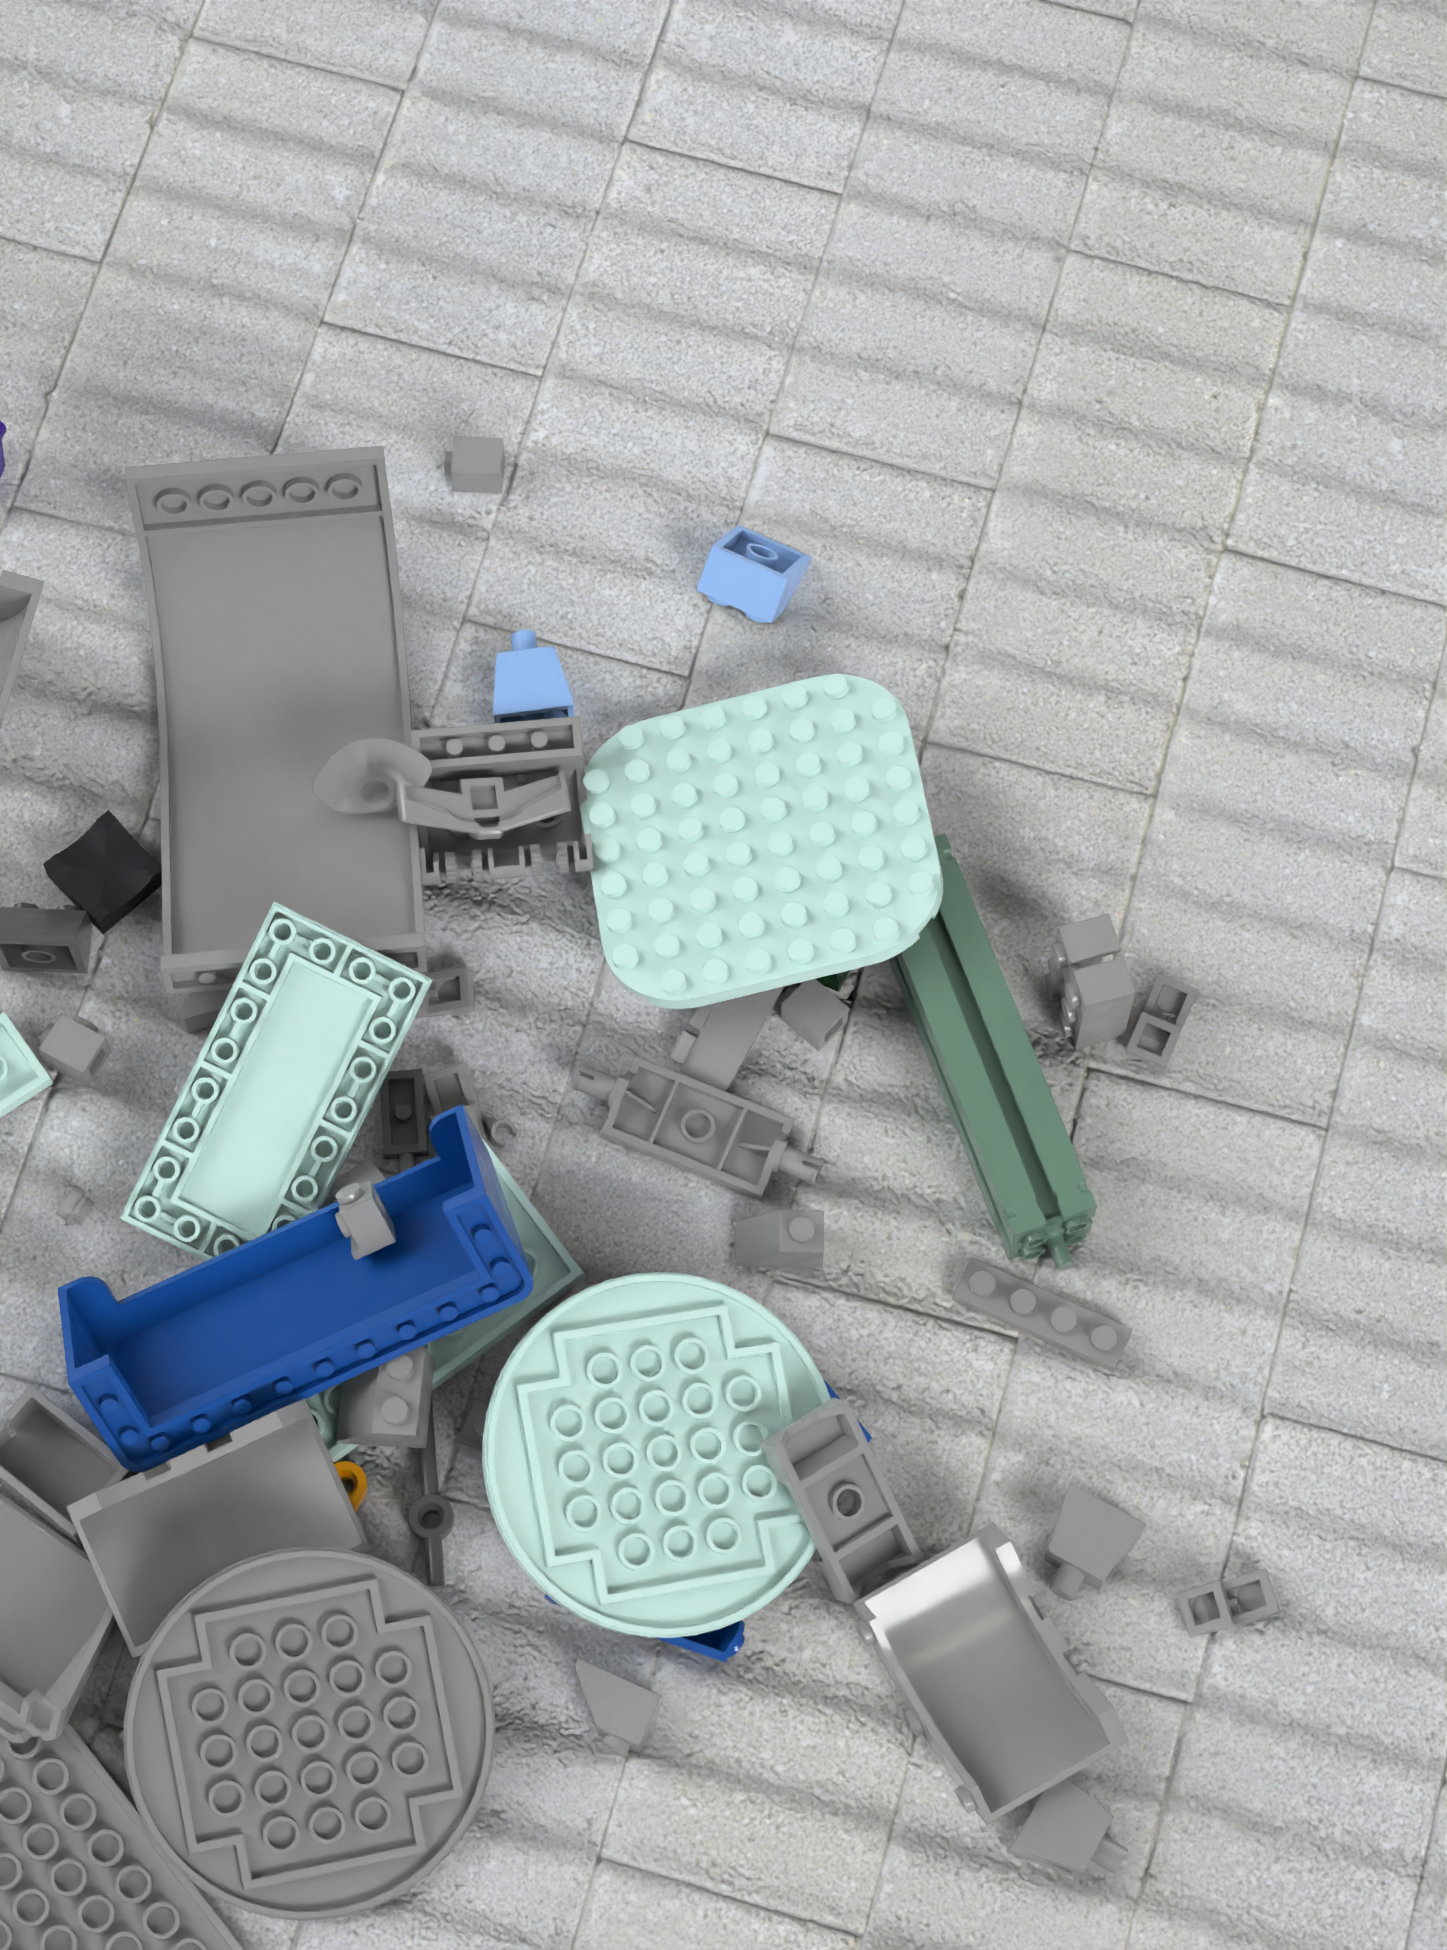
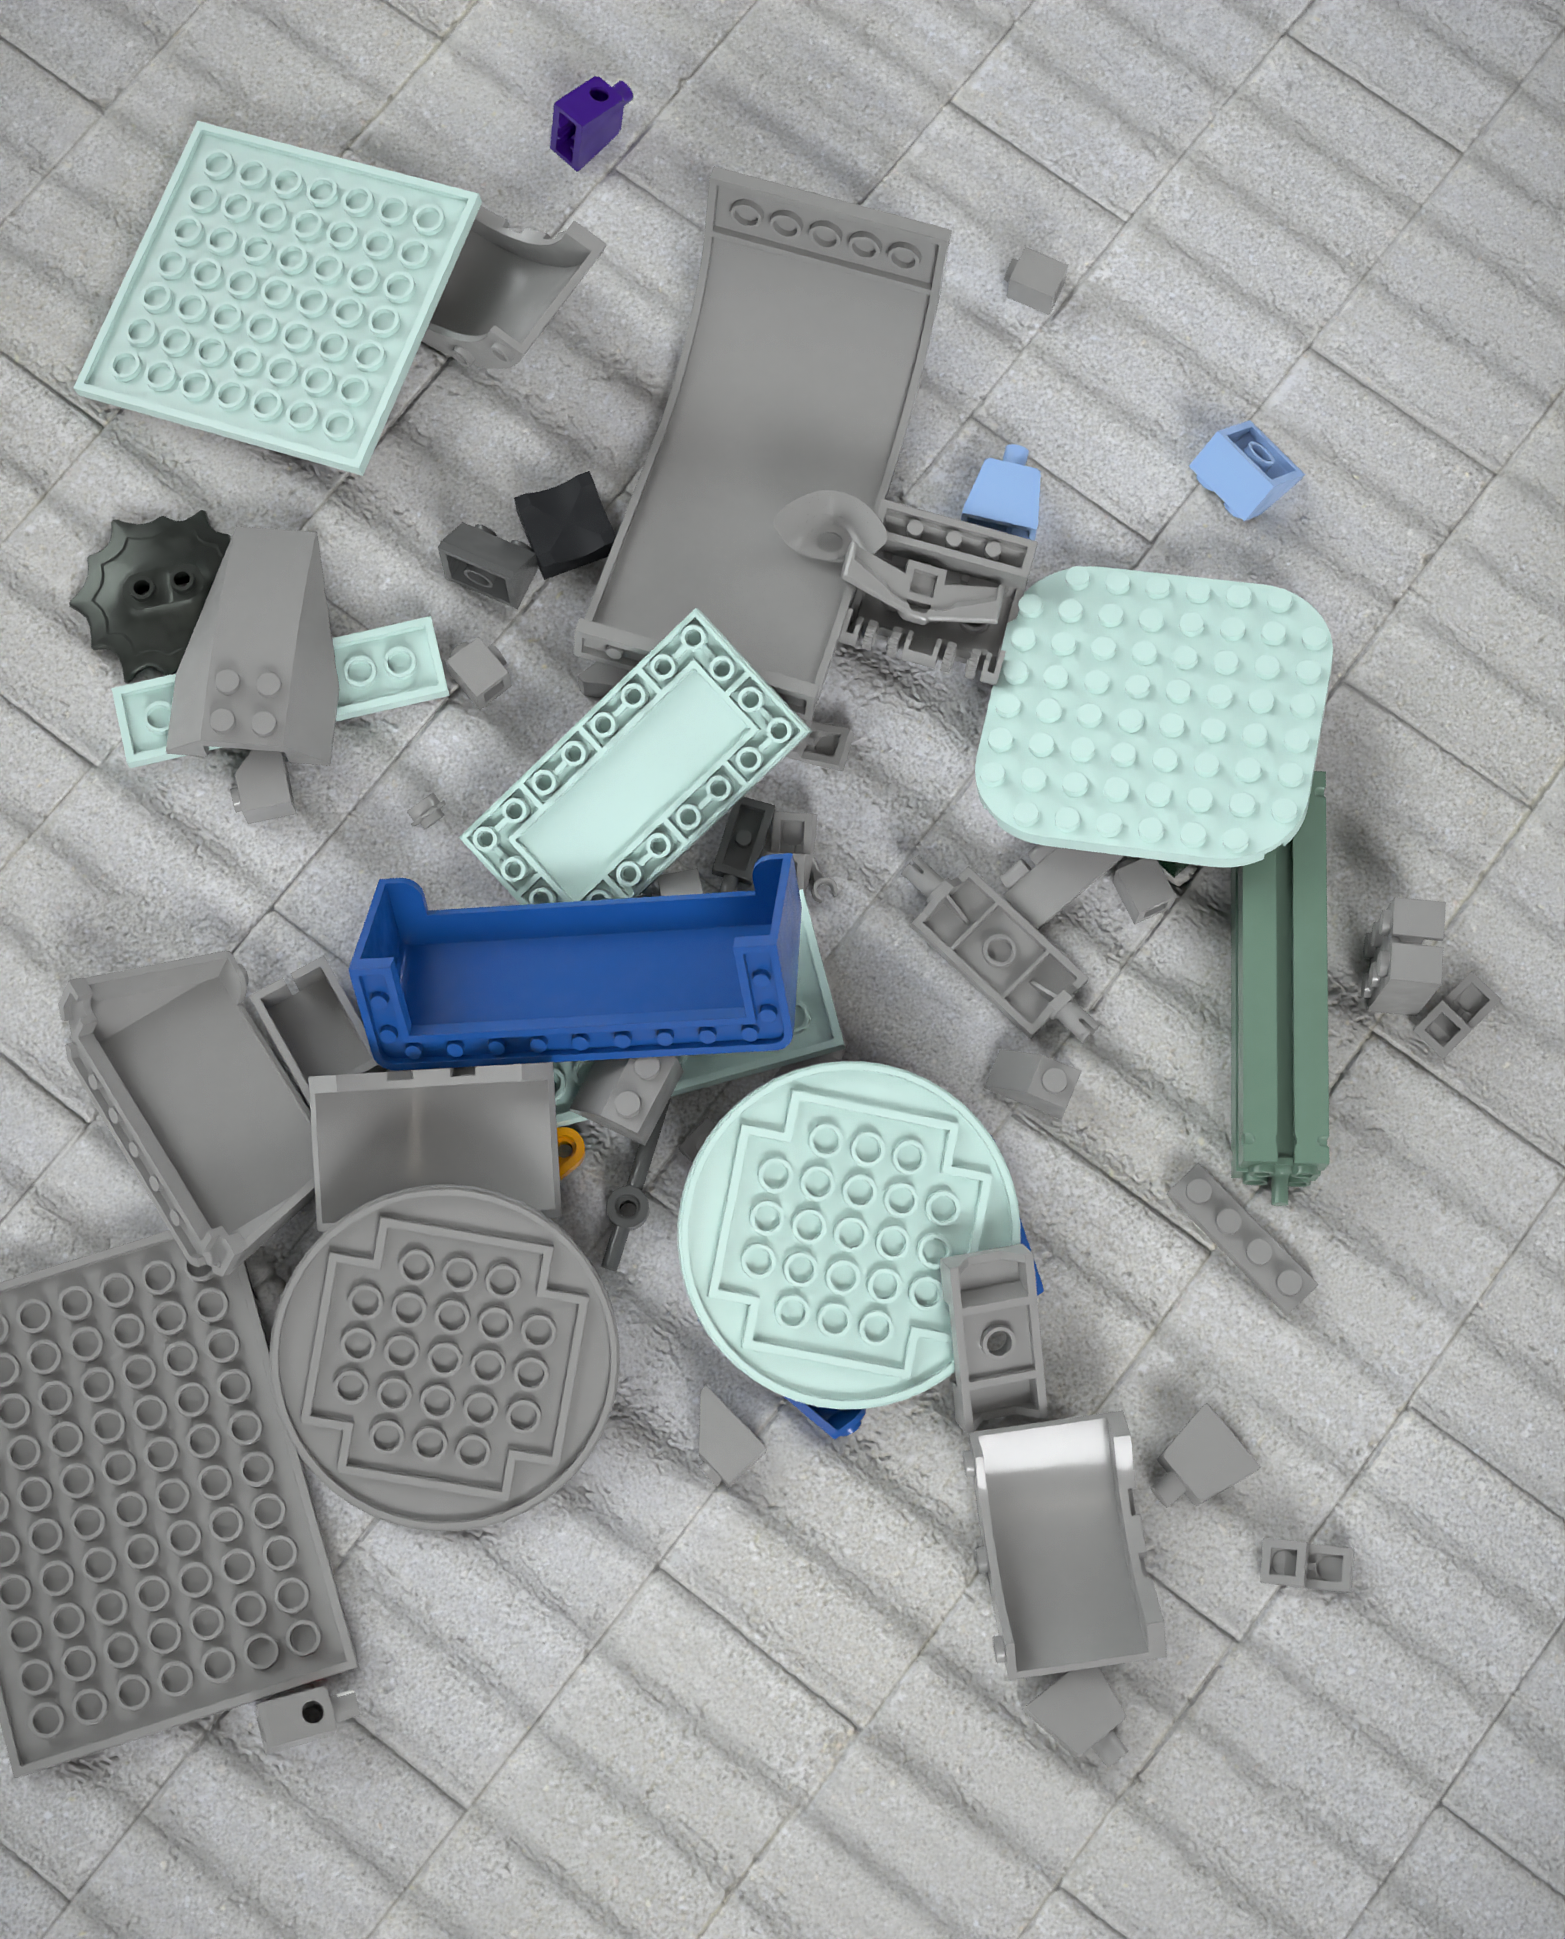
camera: 20 degrees right, 5 degrees up
(364, 1219) = (668, 922): light grey brick -> none

